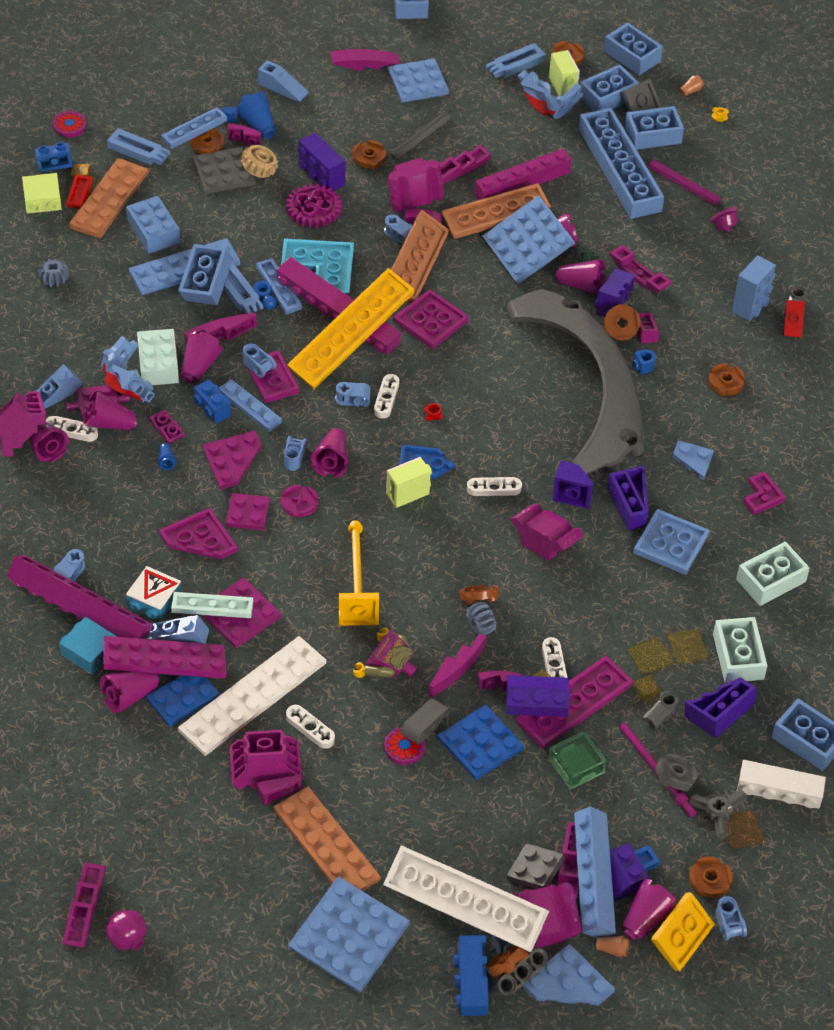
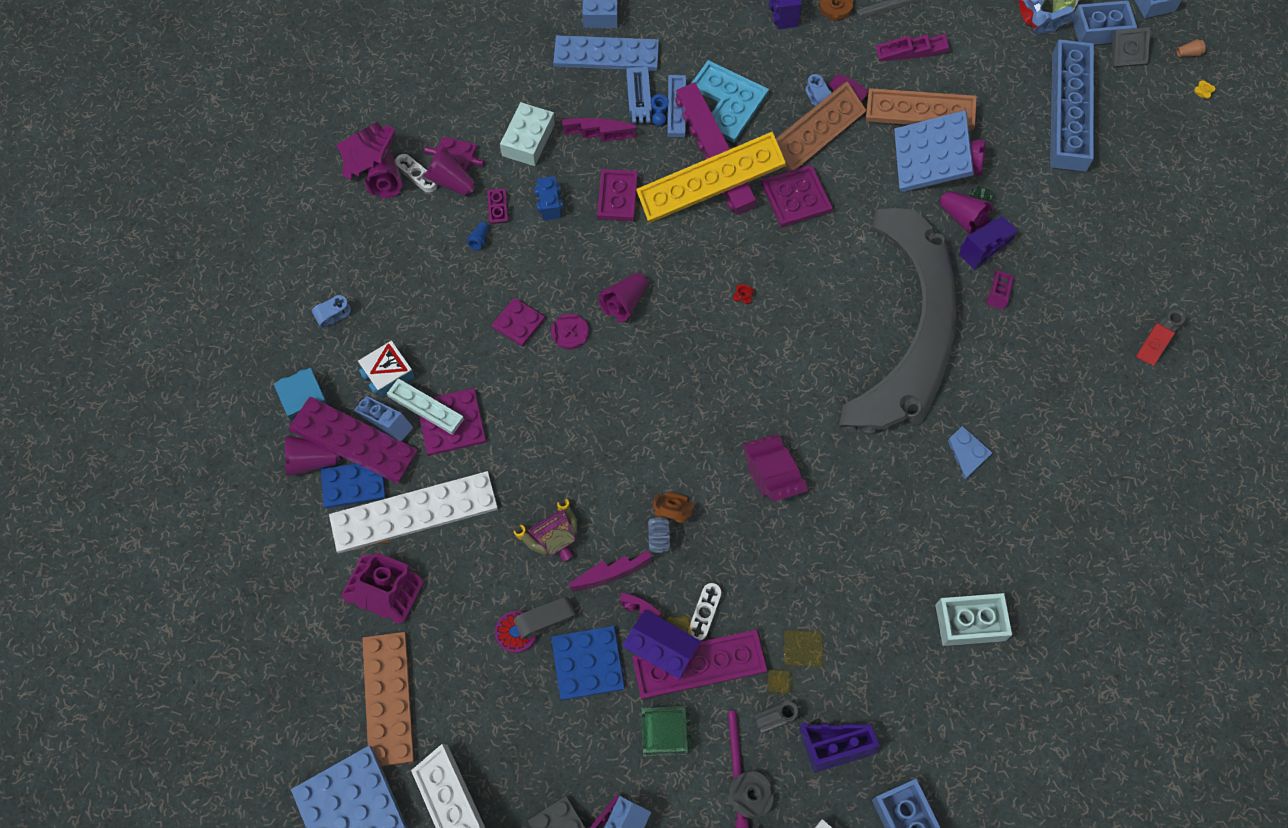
camera: 30 degrees right, 15 degrees up
(53, 272) = (489, 14): sand blue gear -> none
(59, 386) = (426, 128): medium blue slope -> none
(76, 598) = (318, 348): magenta brick -> none
(84, 905) = (148, 653): magenta slope -> none
(118, 378) = (482, 140): medium blue hips -> none
(126, 930) = (160, 702): magenta plant -> none
(199, 355) = (561, 149): magenta cone -> none
(199, 535) = (461, 328): magenta plate -> none
(205, 274) = (612, 69): medium blue brick -> none
(232, 457) = (535, 261): magenta plate -> none
(250, 405) = (582, 215): medium blue plate -> none
(257, 360) = (609, 176): medium blue piece -> none
(278, 788) = (371, 621): magenta slope -> none
(294, 453) = (594, 278): medium blue piece -> none
(306, 719) = (442, 585): white beam -> none
(313, 211) = (754, 38): magenta gear -> none
(354, 394) = (679, 244): medium blue piece -> none
(358, 607) = (552, 470): yellow tile -> none
(385, 390) = (711, 250): white beam -> none
(408, 482) = (674, 359): yellowish green piece -> none
(415, 184) = (857, 52): magenta slope -> none
(432, 456) = (704, 341): blue tile -> none
(499, 481) = (754, 389): white beam -> none
(525, 174) = (969, 81): magenta brick -> none
(572, 485) = (825, 431): dark purple slope -> none
(625, 261) = (1023, 222): magenta slope -> none
(629, 314) = (985, 270): dark orange plate -> none
(630, 496) = (878, 467): dark purple wedge -> none
(644, 361) = (975, 326): blue plate -> none
(654, 127) = (1127, 80): medium blue brick -> none
(671, 541) = (893, 534): medium blue plate -> none
(684, 182) = (1126, 150): magenta axle -> none
(687, 645) = (845, 655): clear yellow piece -> none
(724, 387) = (1055, 373): dark orange plate -> none
(725, 219) = (1145, 205): magenta piece -> none
(740, 649) = (891, 689): light aqua brick -> none
(754, 288) = (1129, 296): medium blue brick -> none
(766, 494) = (1019, 527): magenta plate -> none

